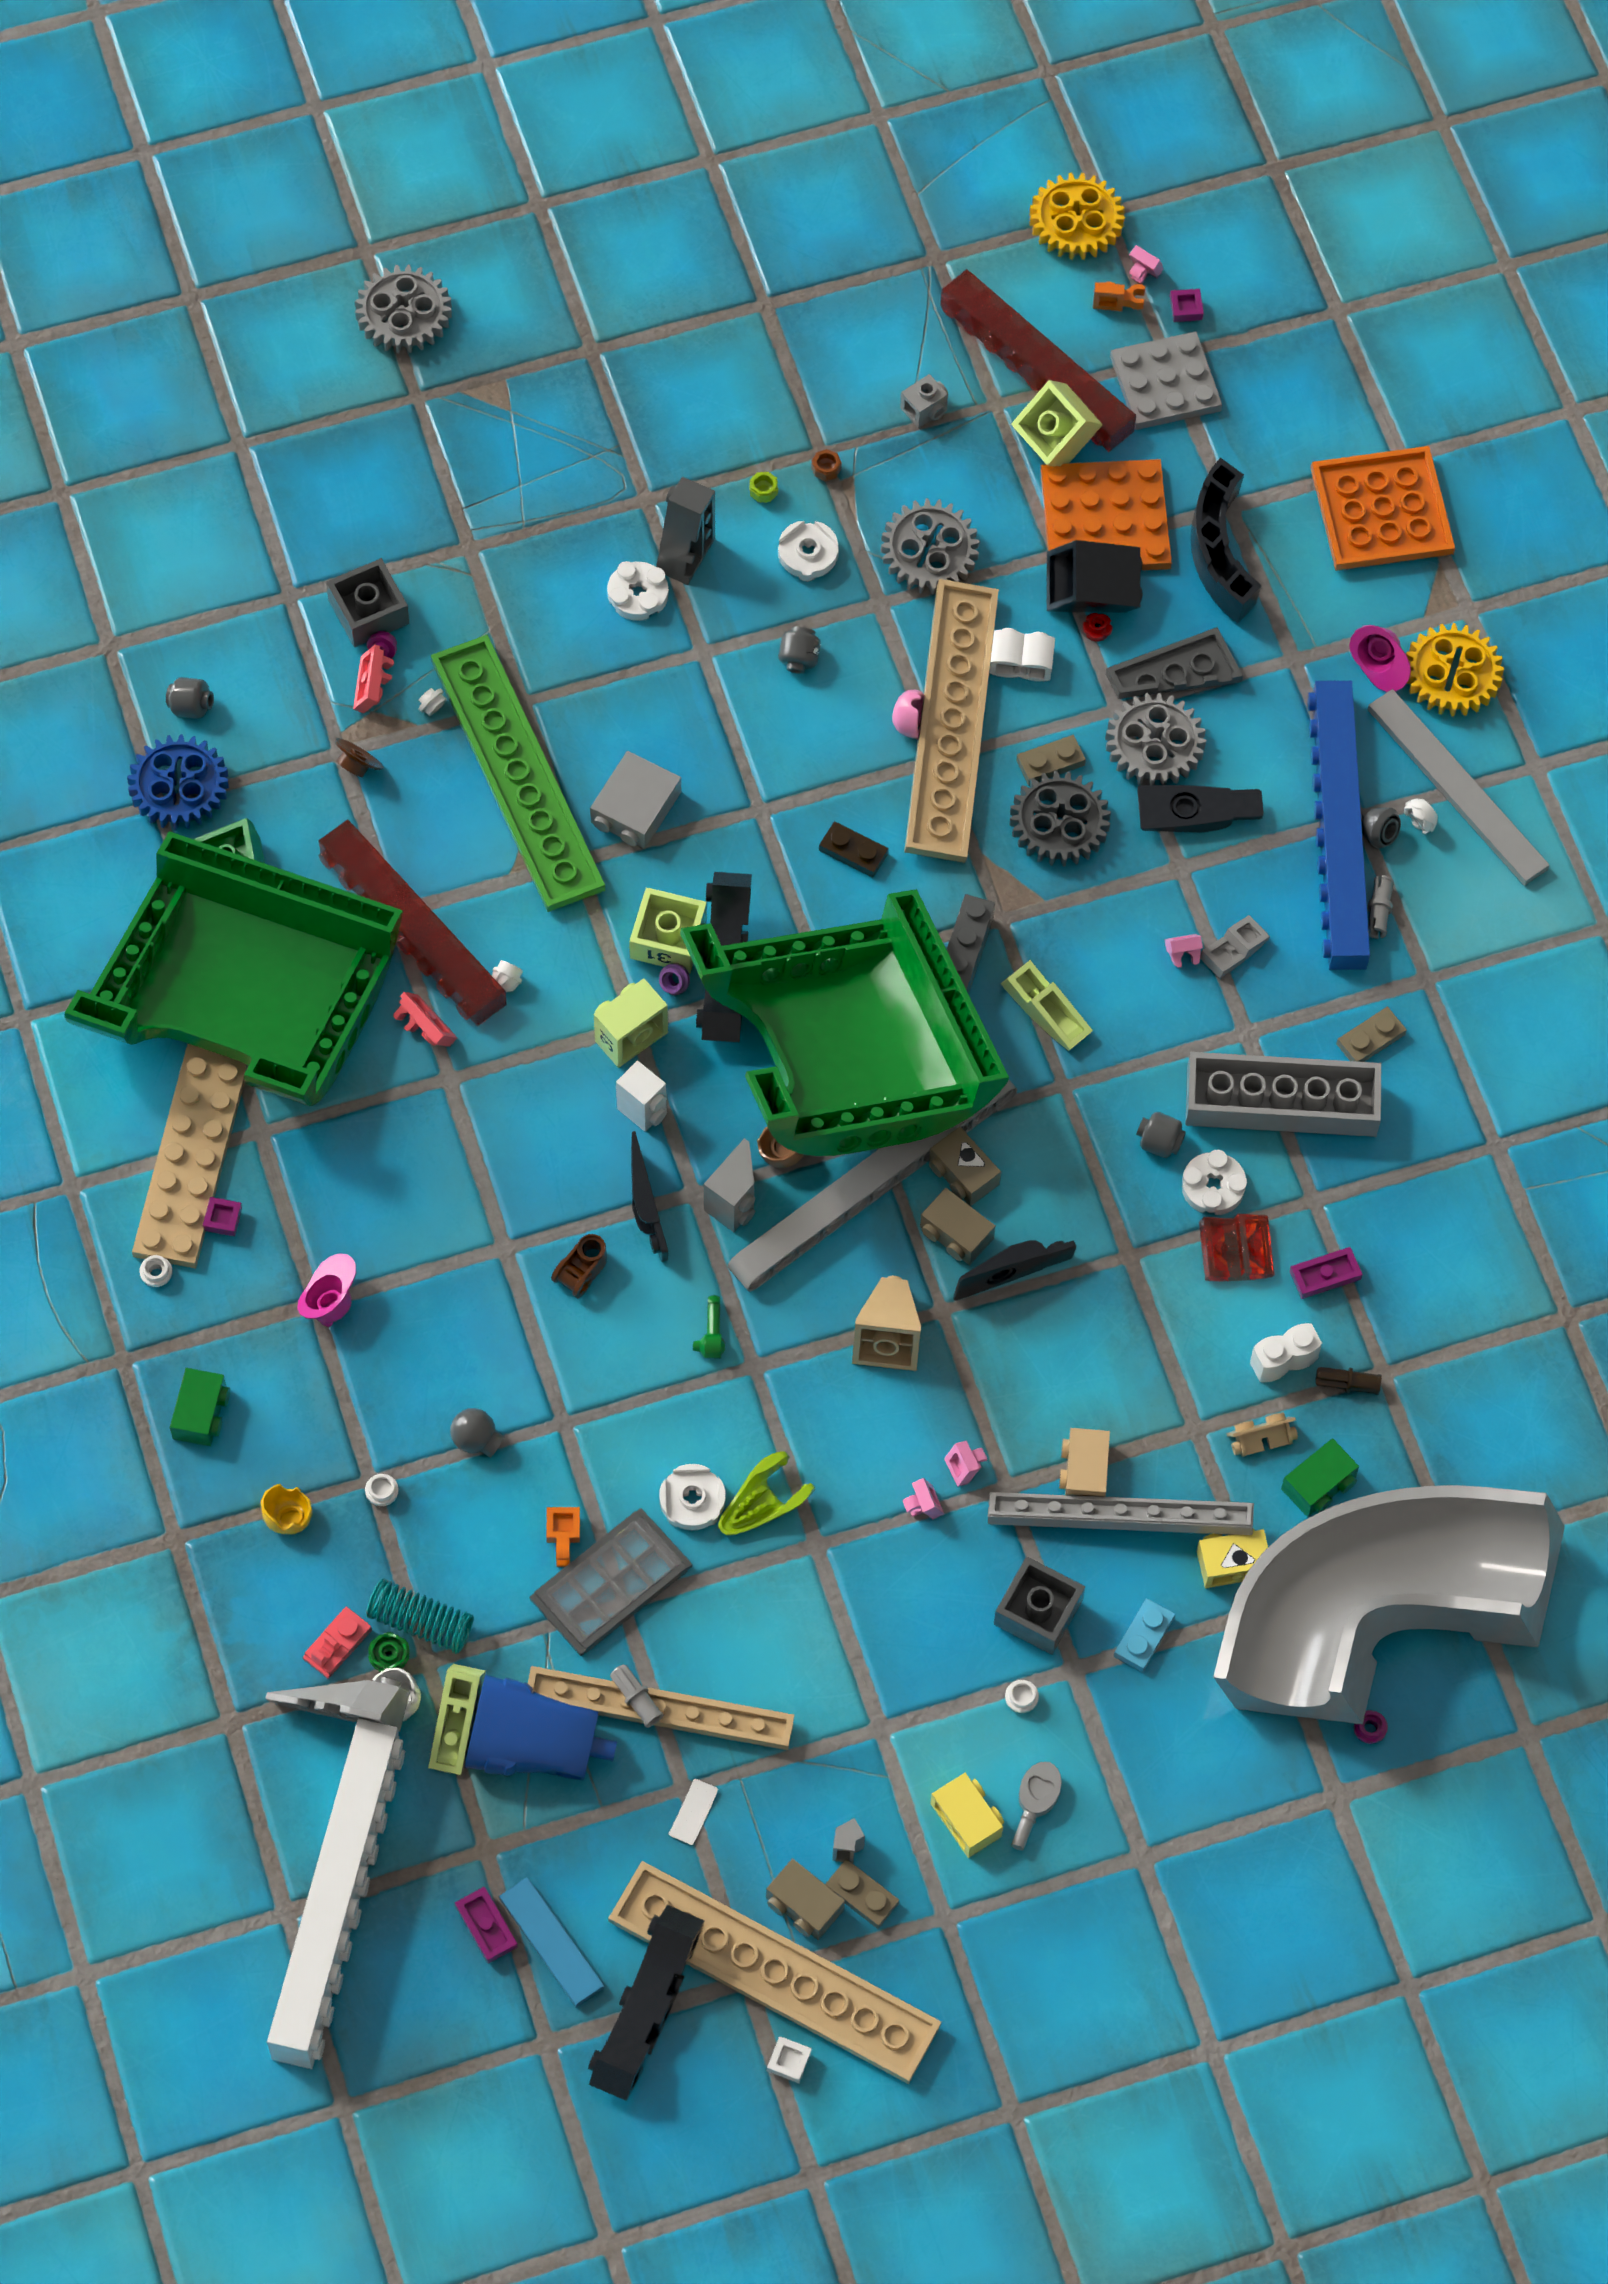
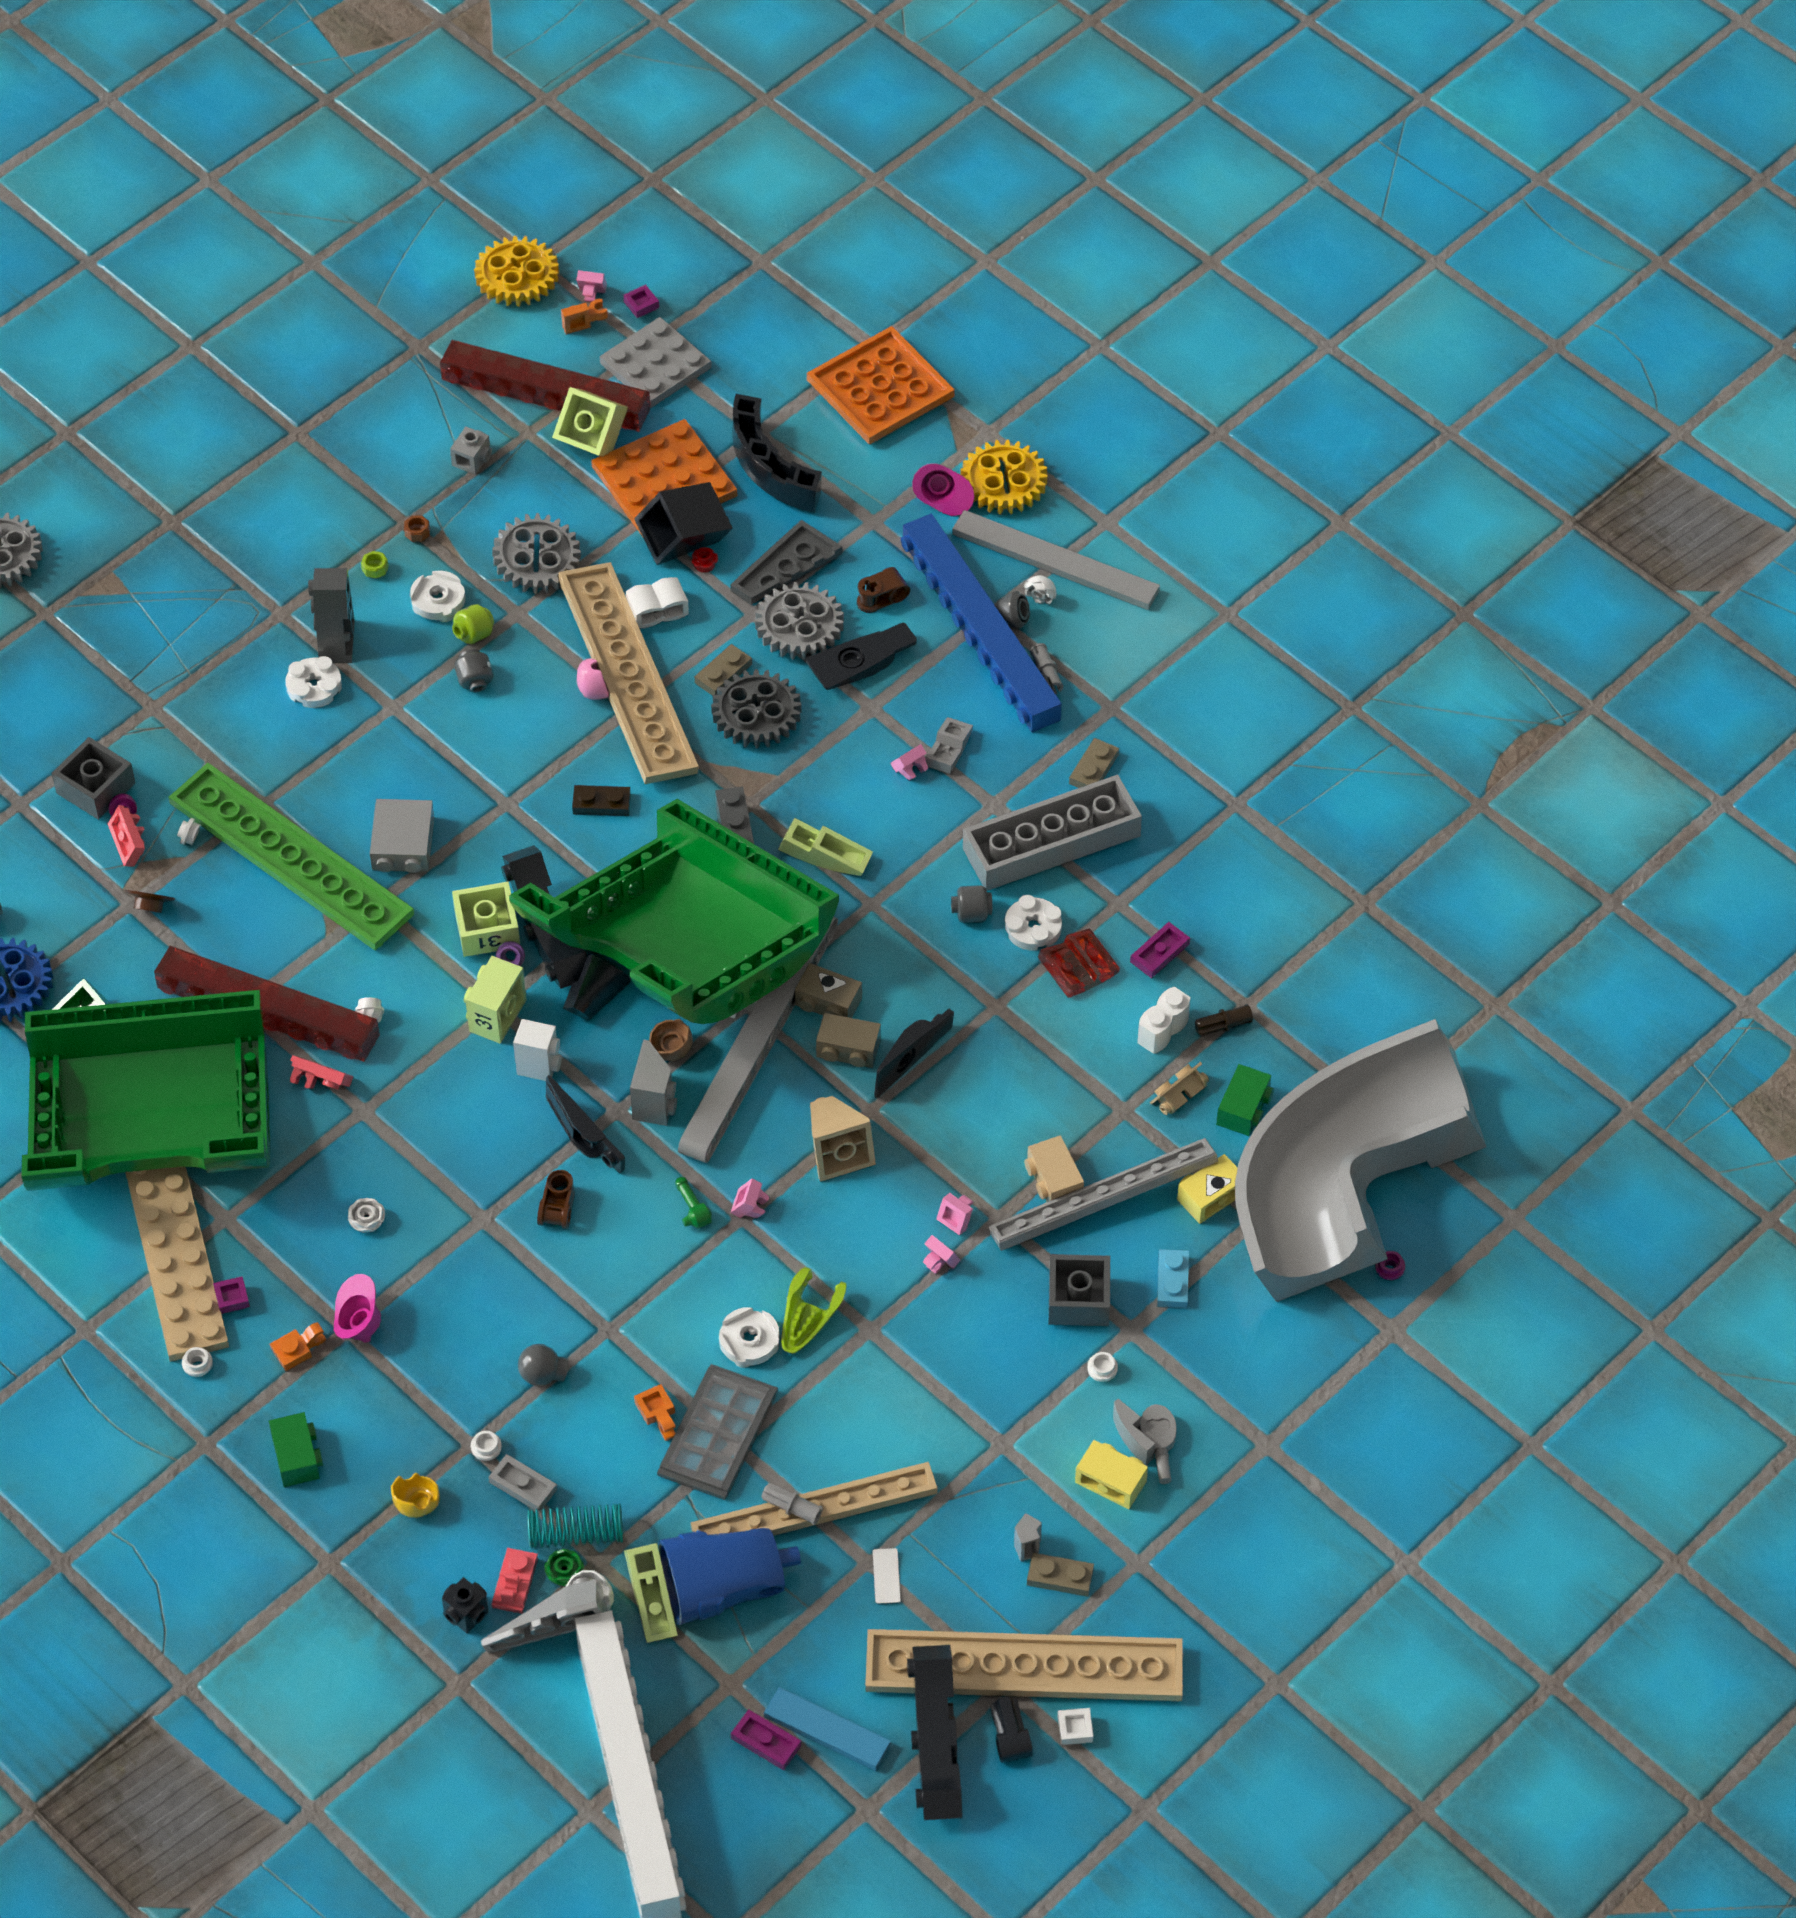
camera: 25 degrees left, 10 degrees down
(252, 1299) = (294, 1348): none -> orange plate
(274, 1646) = (465, 1604): none -> black brick
(388, 1184) = (366, 1207): none -> white plate
(395, 1546) = (522, 1483): none -> light grey plate
(722, 2041) = (1011, 1738): none -> black piece
(735, 1054) = (595, 987): none -> black slope
(765, 1350) = (746, 1200): none -> bright pink tile
(804, 1900) = (1018, 1598): dark tan brick -> none
(825, 597) = (472, 624): none -> lime head
(1011, 1774) = (1128, 1426): none -> light grey slope
(1260, 742) = (884, 587): none -> reddish brown piece

